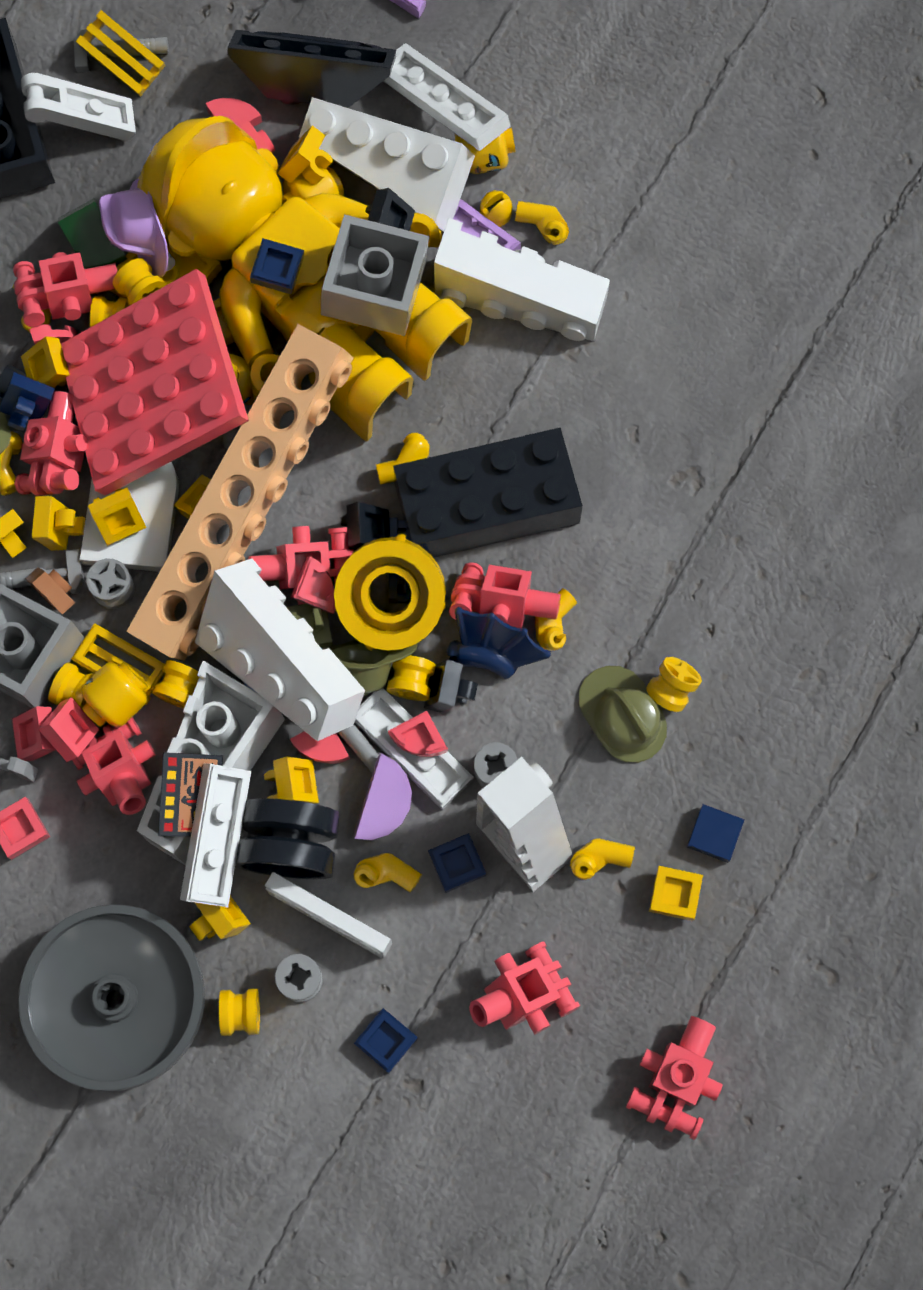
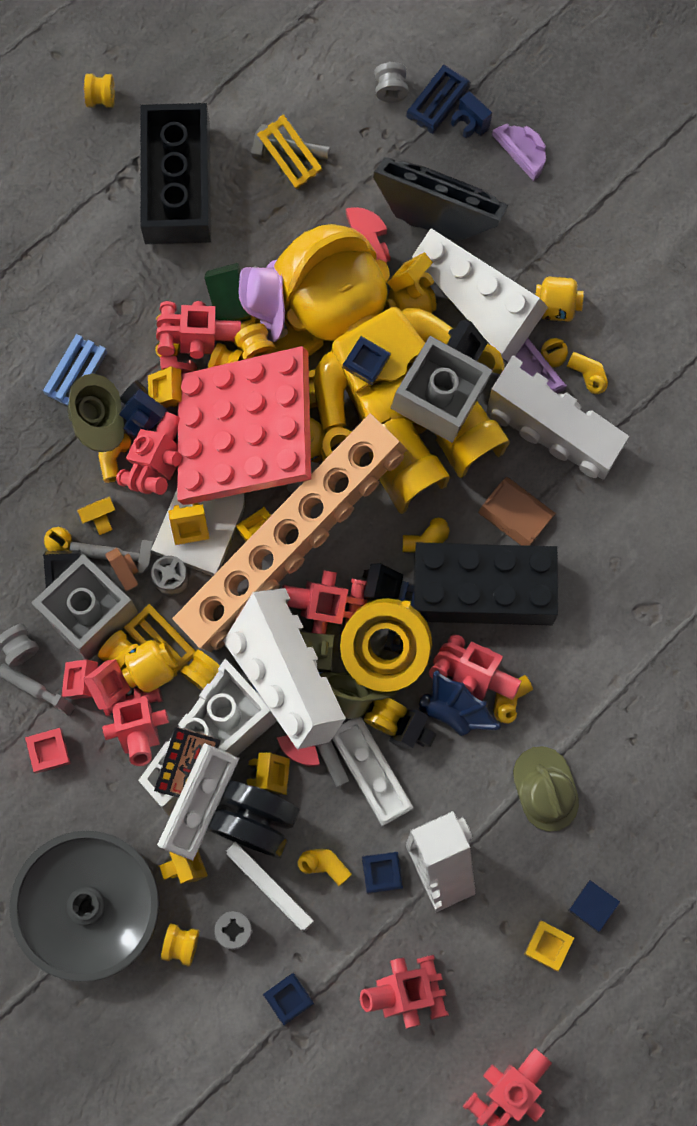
camera: 15 degrees right, 0 degrees up
(54, 523) = (139, 516): yellow tile -> none
(77, 106) = (244, 188): white plate -> none
(315, 586) = (328, 623): coral tile -> none
(385, 801) = (339, 807): lavender tile -> none
(419, 736) = (378, 764): coral tile -> none
(446, 98) = (537, 255): white plate -> none
(487, 771) = (427, 808): light grey wheel -> none
(501, 404) = (516, 512): none -> nougat piece
(599, 853) = (495, 897): yellow arm -> none
(673, 684) = (592, 777): yellow wheel -> none

